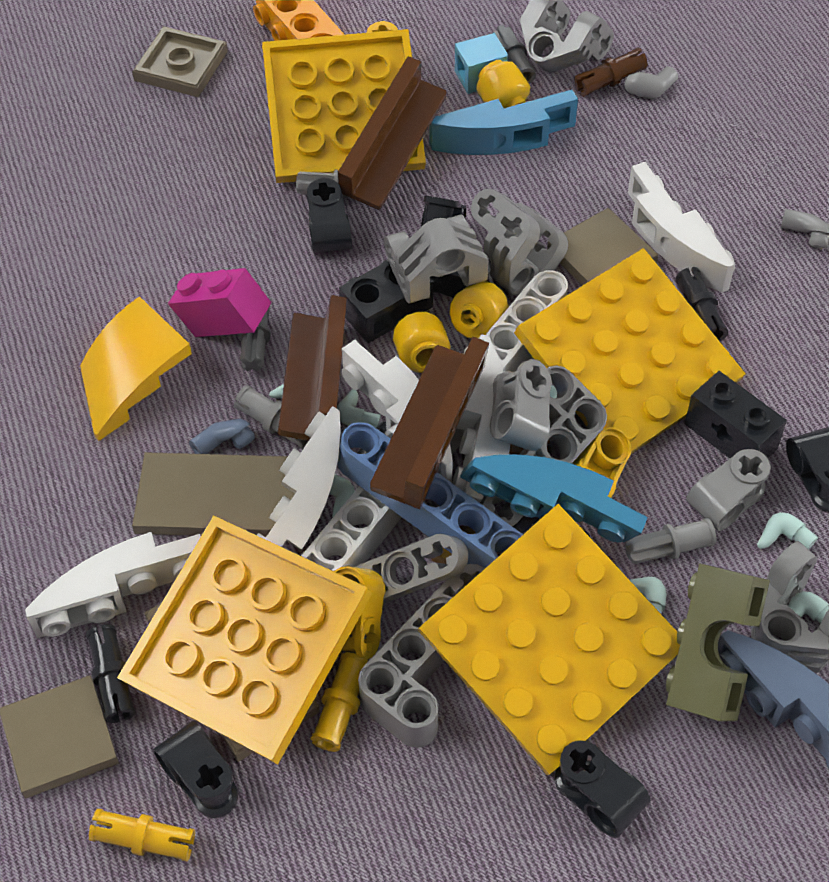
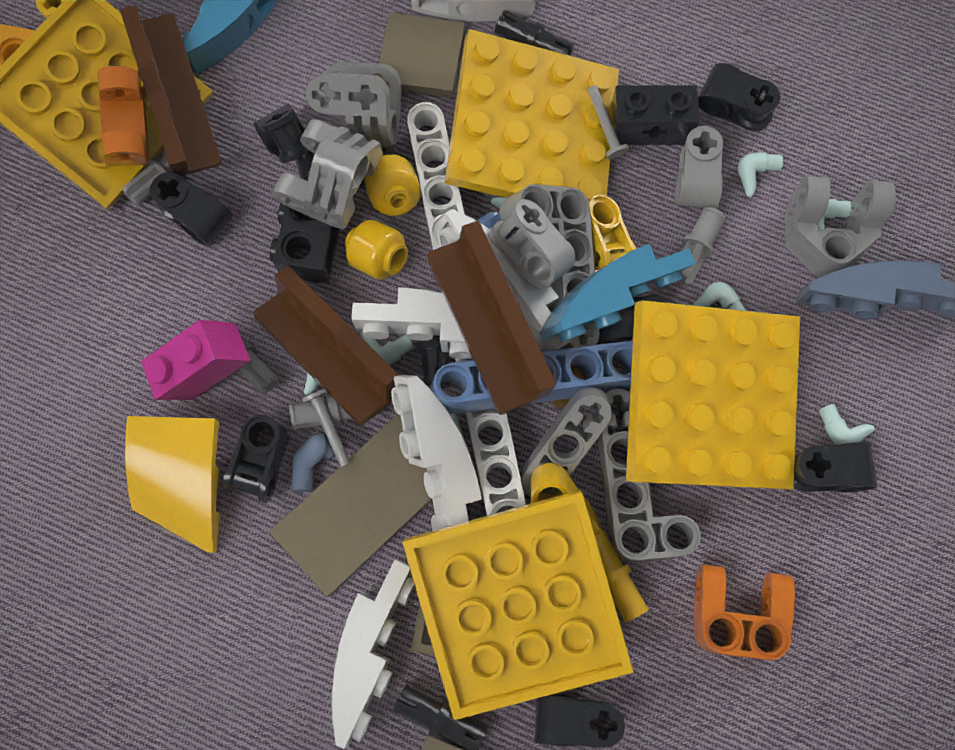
camera: 45 degrees left, 20 degrees up
(191, 400) = (256, 461): none -> black piece
(269, 391) = (328, 426): none -> light grey pin
(337, 130) = (122, 116): none -> orange piece
(394, 826) = (775, 615): none -> orange piece
(641, 767) = (838, 430): none -> light aqua animal
(676, 420) = (616, 149): none -> light grey pin
(700, 678) = (807, 266): olive arch -> none

